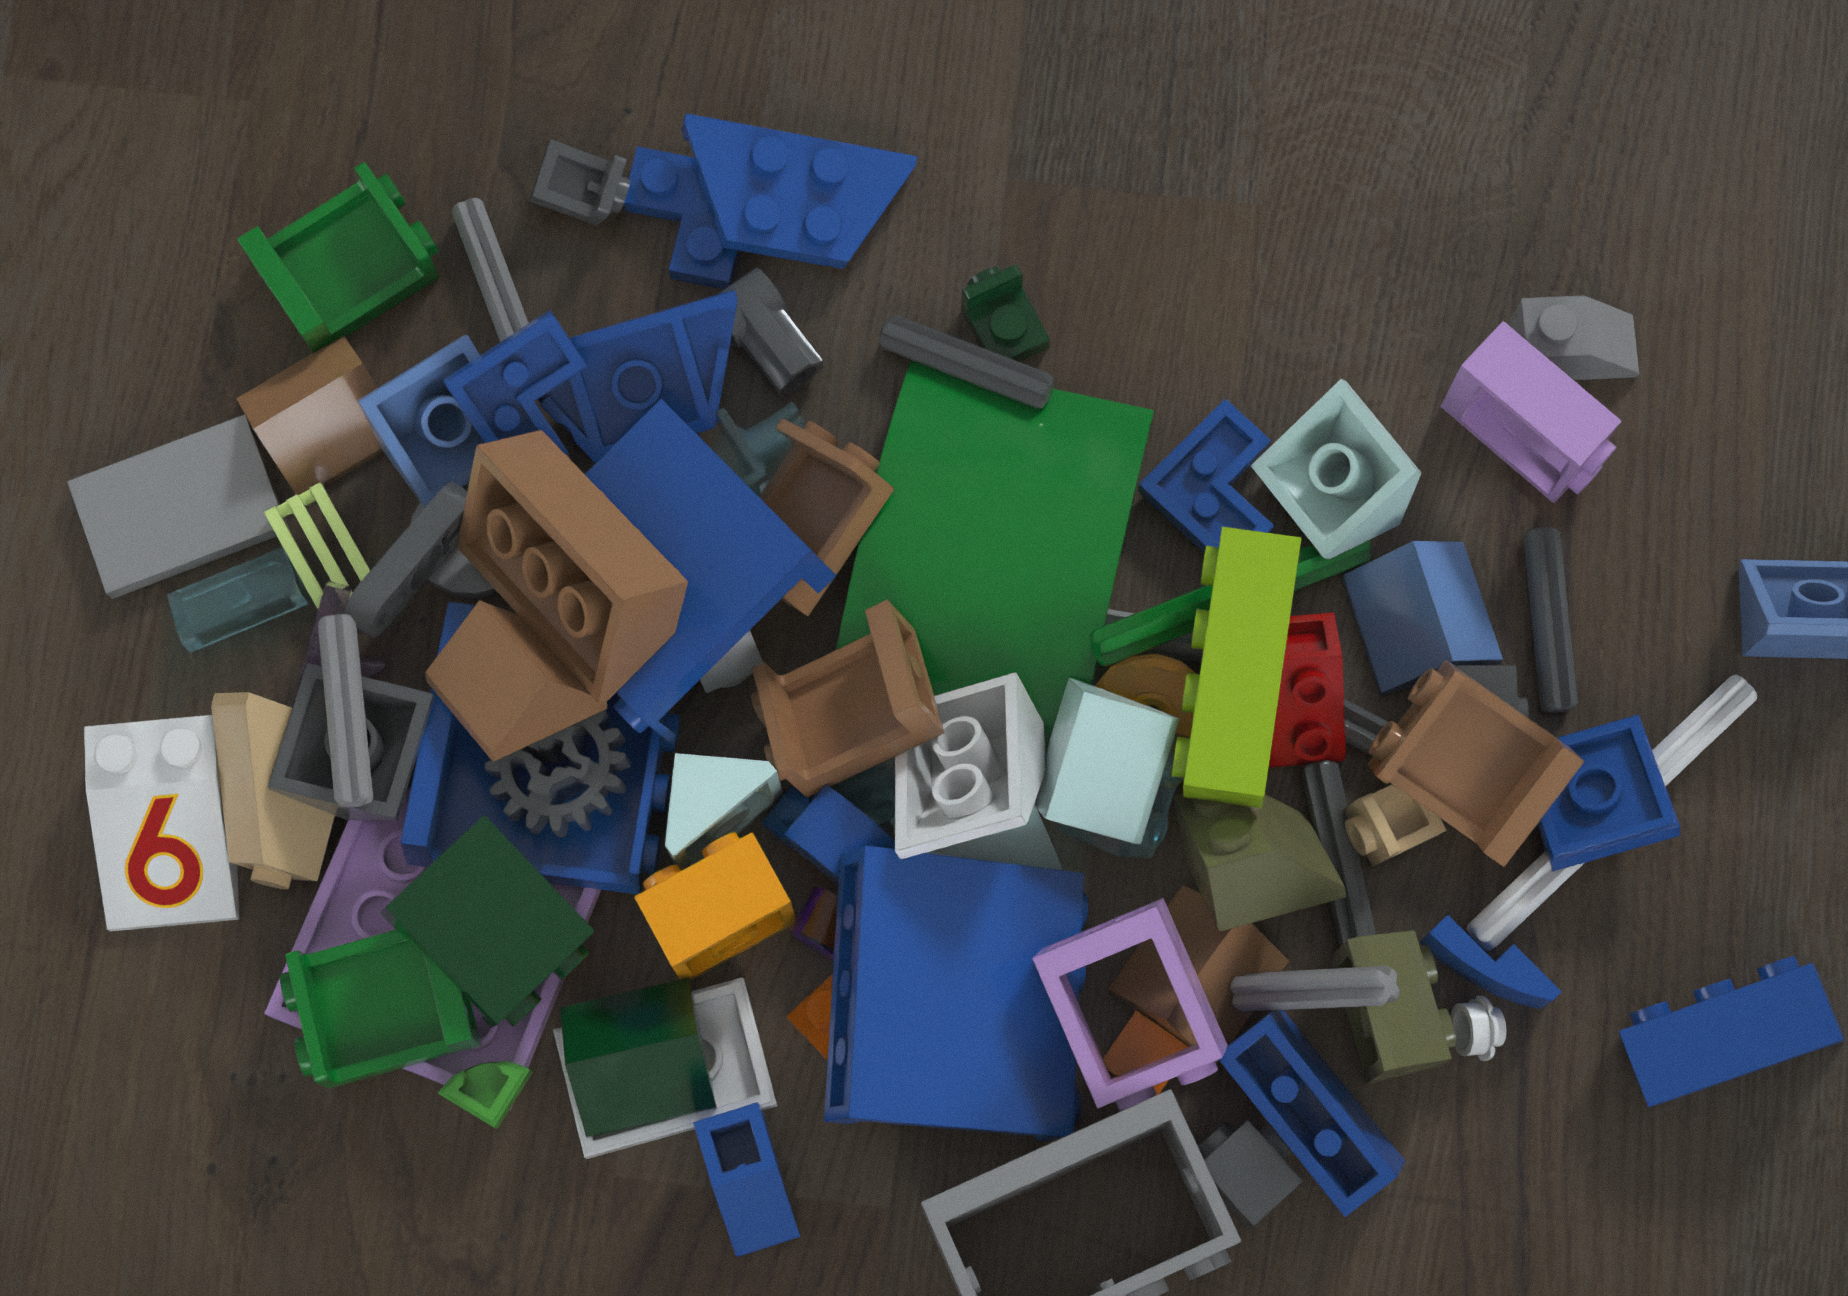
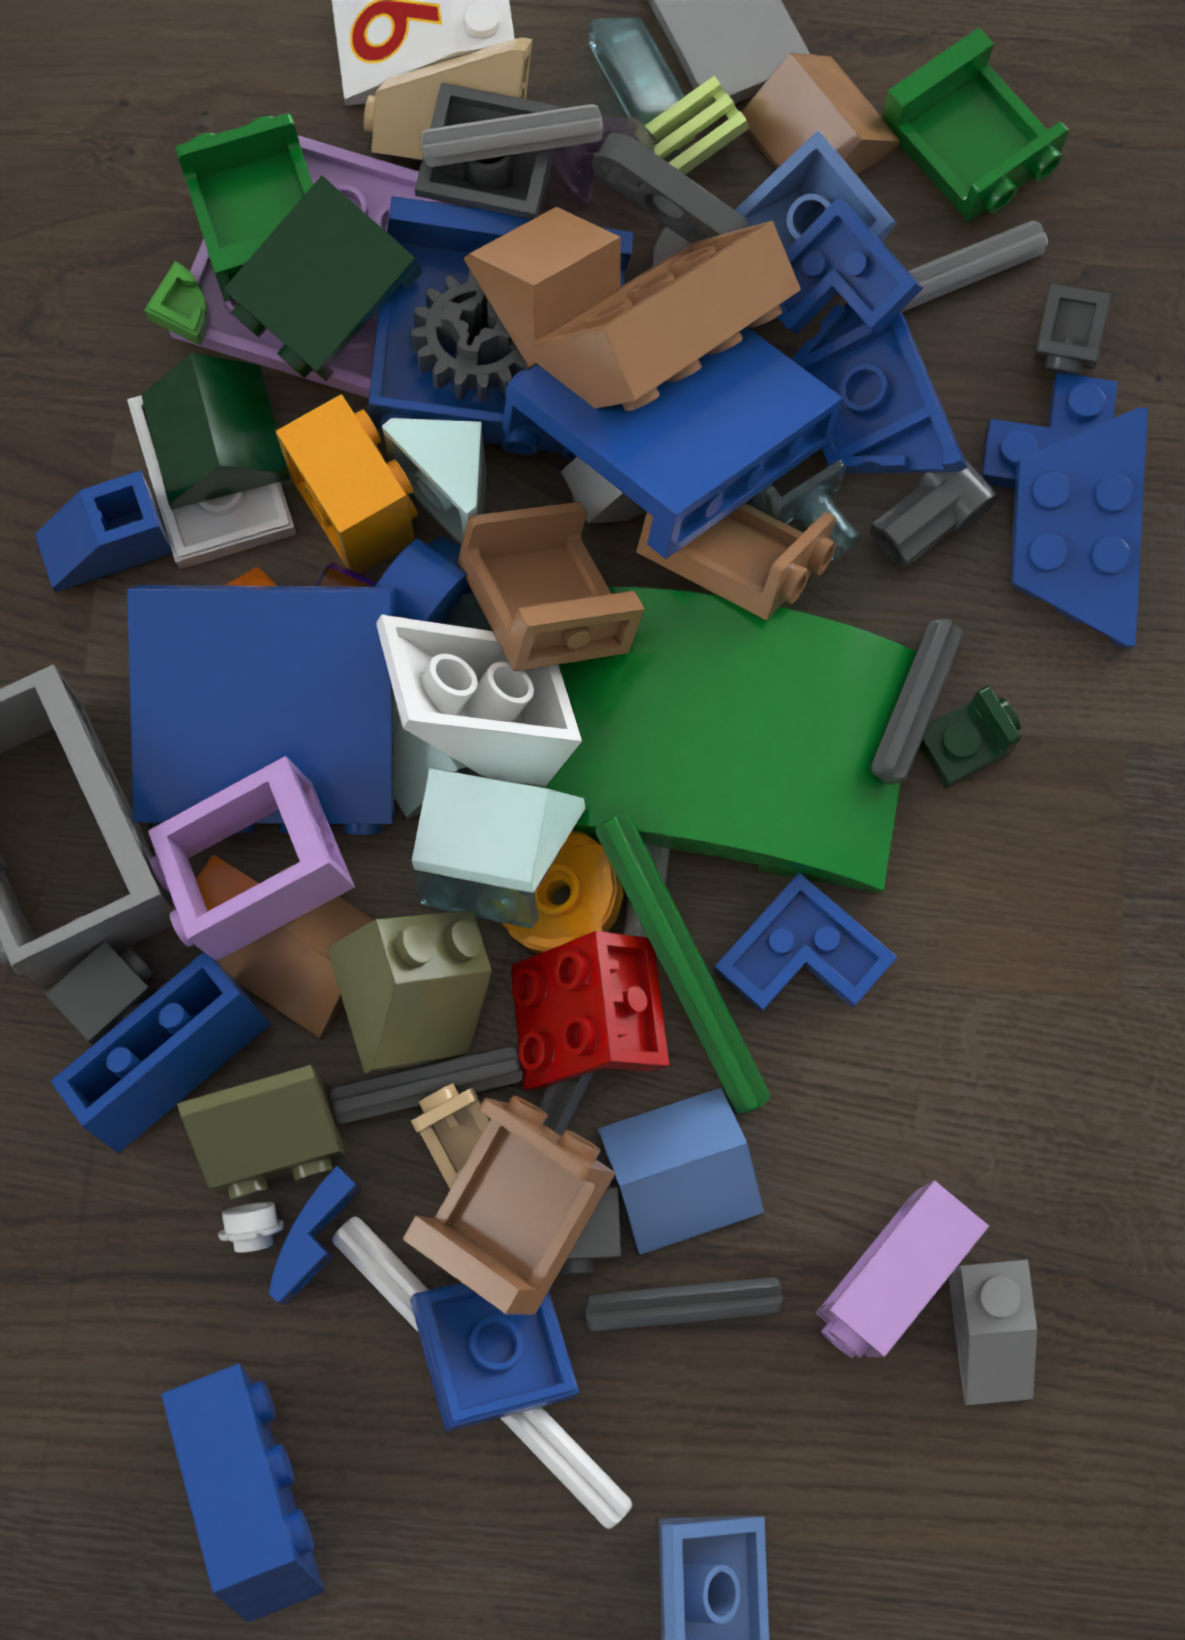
camera: 85 degrees right, 0 degrees up
(1240, 667) = (587, 949): lime brick -> none
(1315, 989) = (264, 1039): light grey axle -> none
(1339, 473) = (817, 1067): light aqua slope -> none

